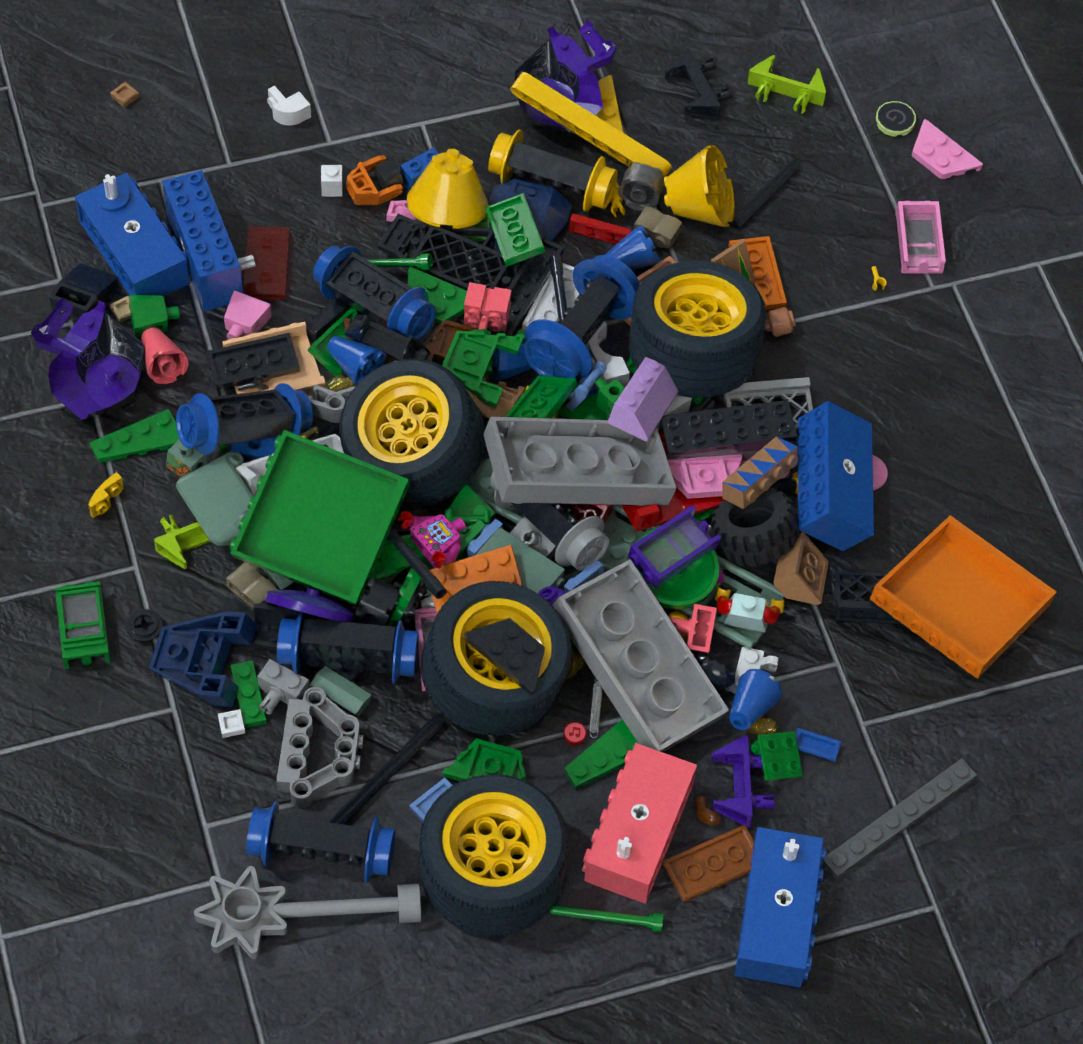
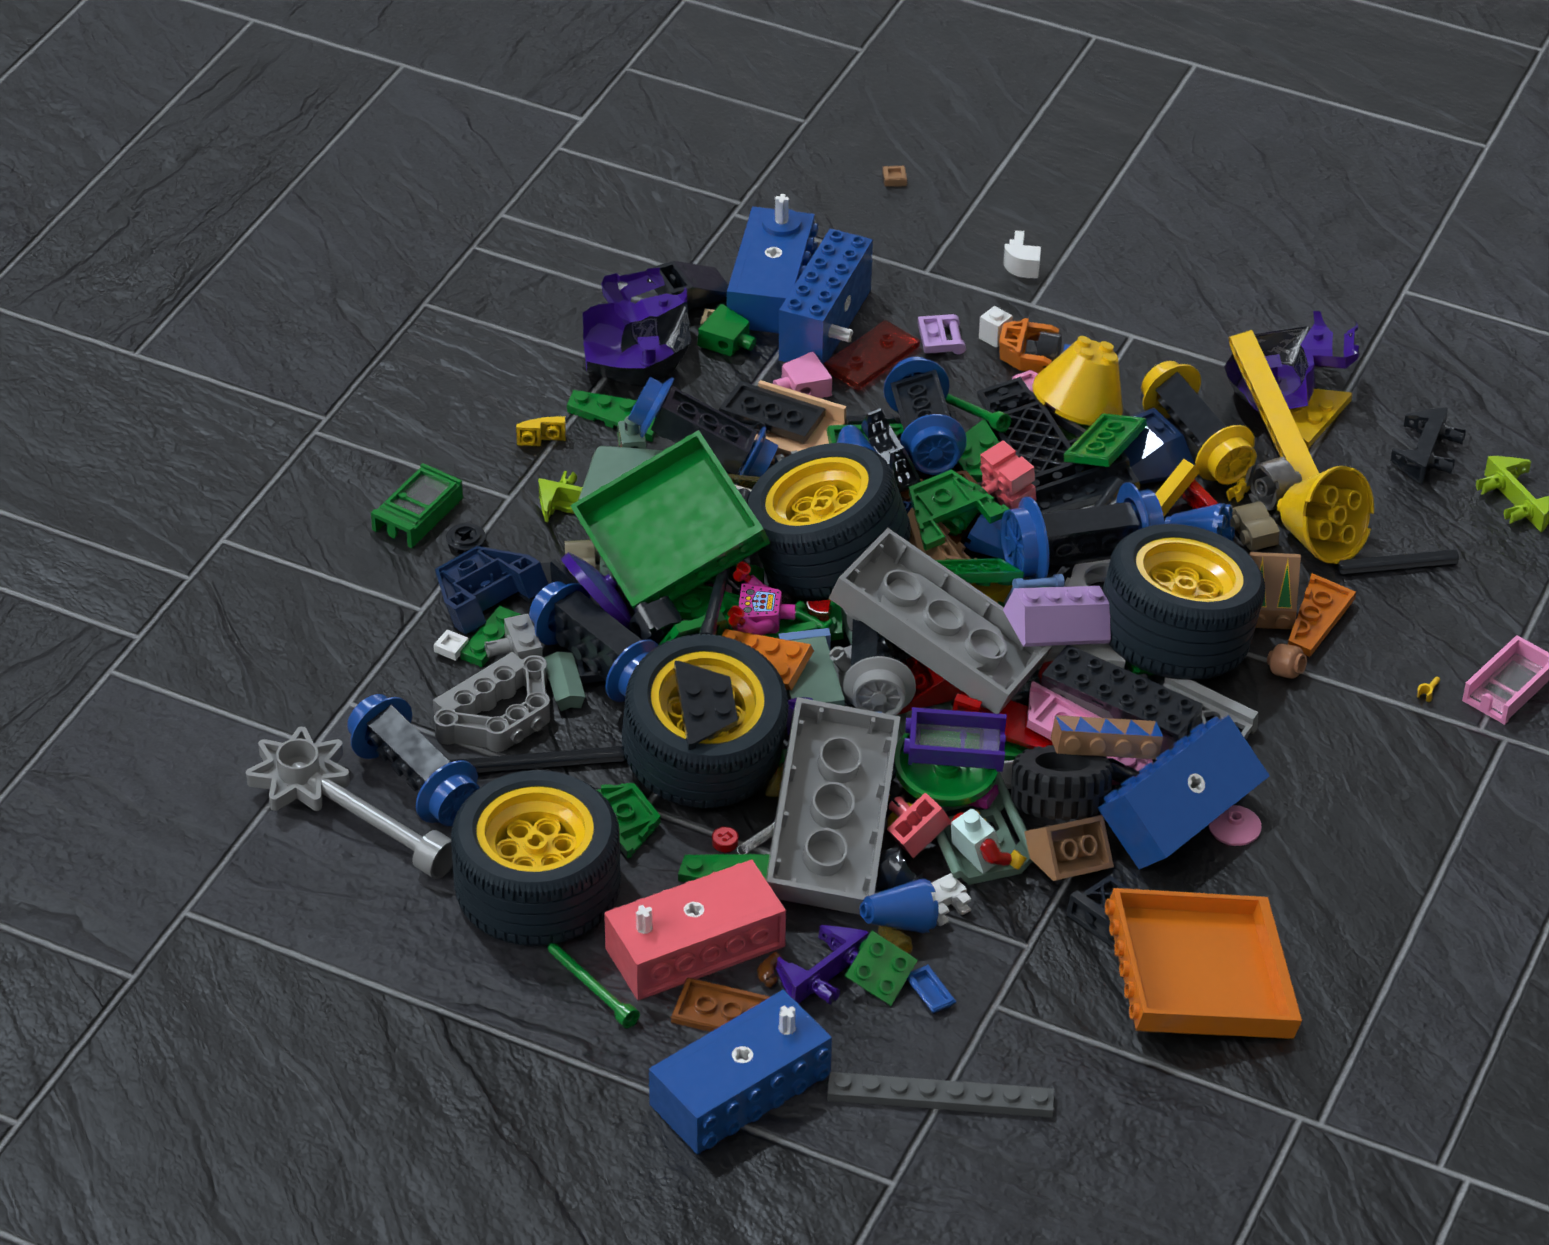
camera: 45 degrees right, 15 degrees down
(162, 357) = (698, 365): coral cone -> none
(293, 215) = (934, 335): none -> lavender plate
(466, 505) = (820, 609): none -> tile
(584, 234) = (1176, 485): none -> yellow piece

